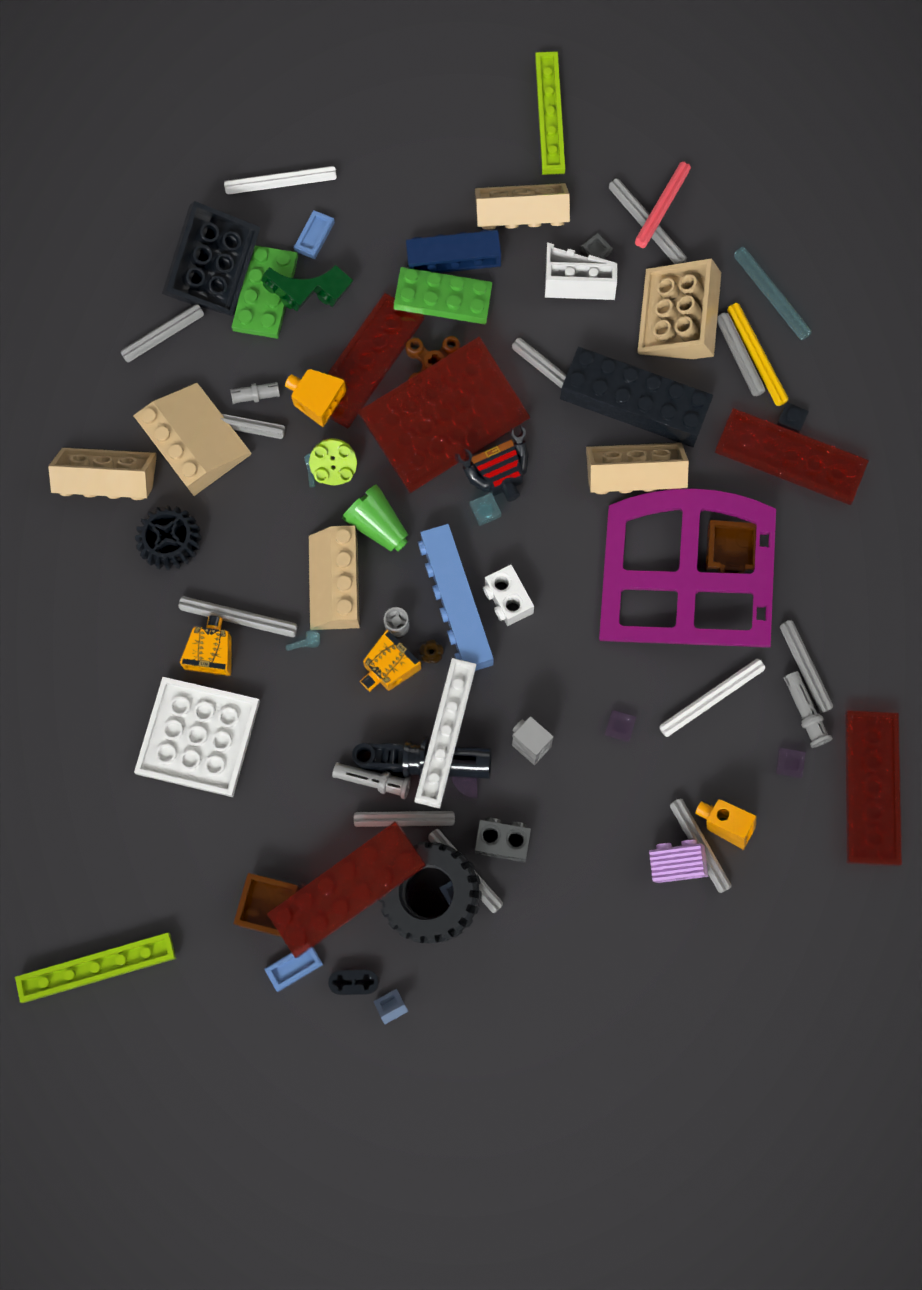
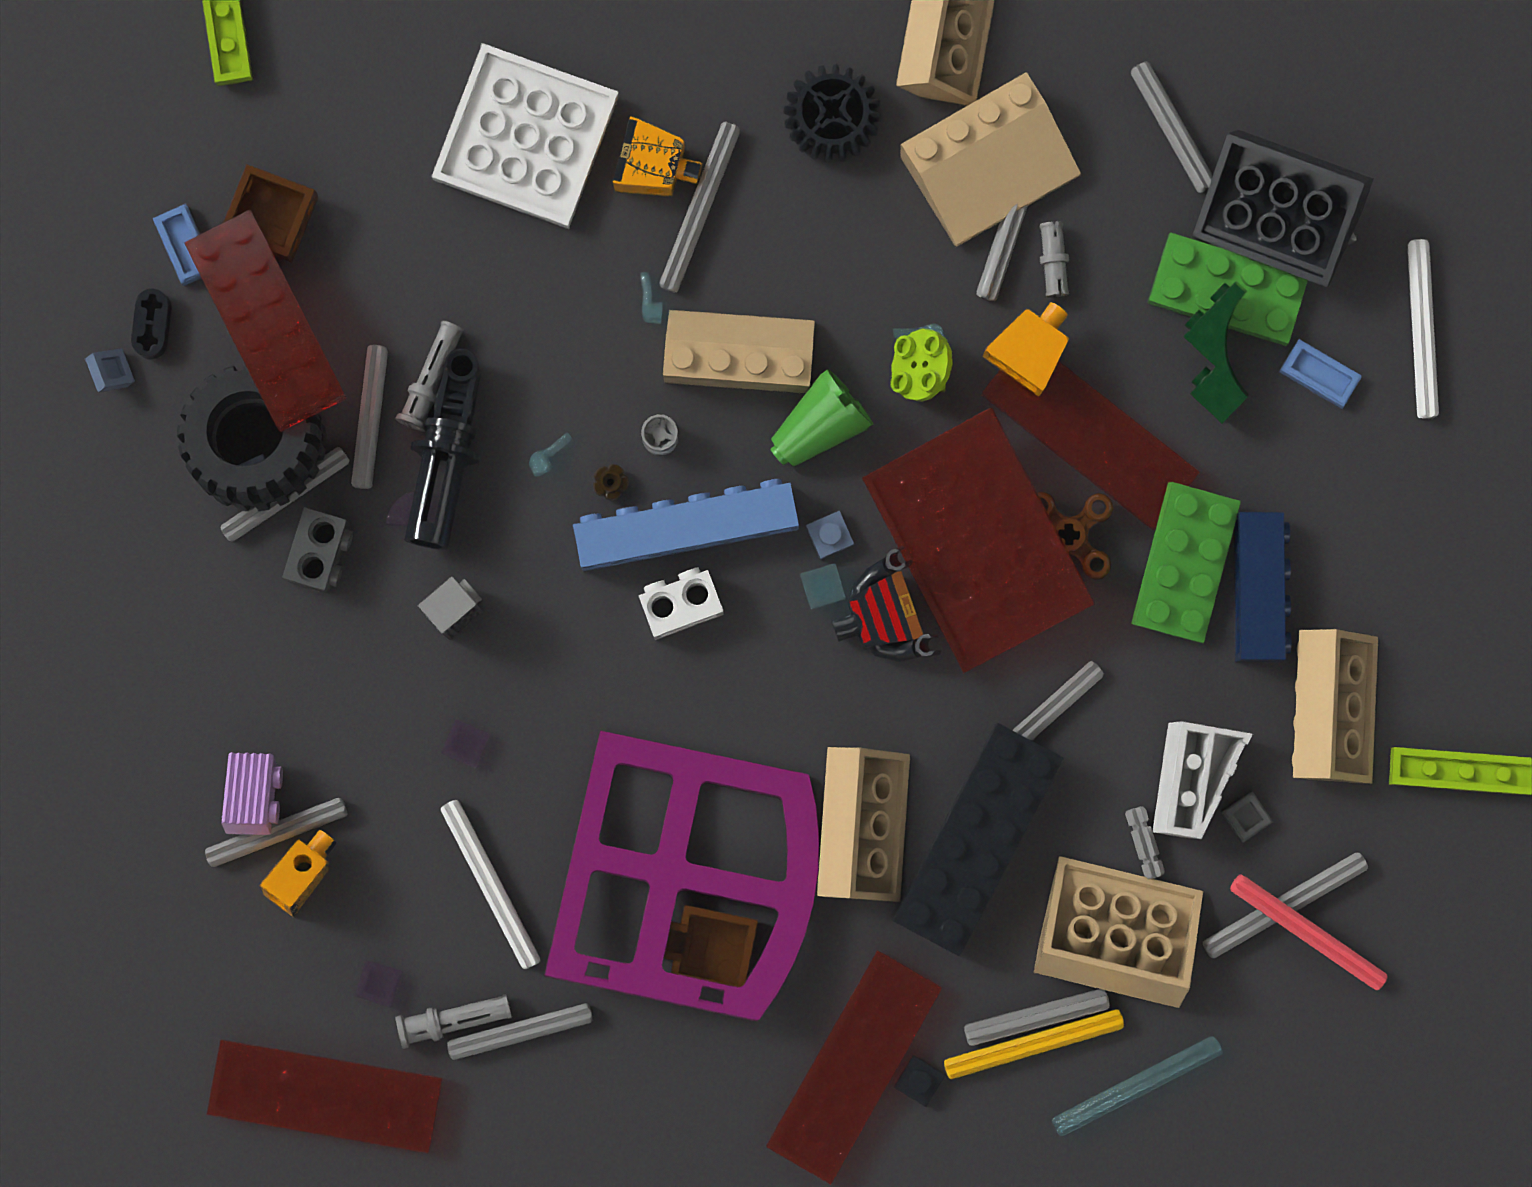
camera: 90 degrees right, 10 degrees up
(389, 663) = (598, 417): light orange torso -> none
(423, 700) = (540, 460): none -> clear light blue hand
(445, 733) = (473, 483): white tile -> none
(450, 510) = (829, 535): none -> sand blue plate
(621, 303) = (1145, 842): none -> light grey axle

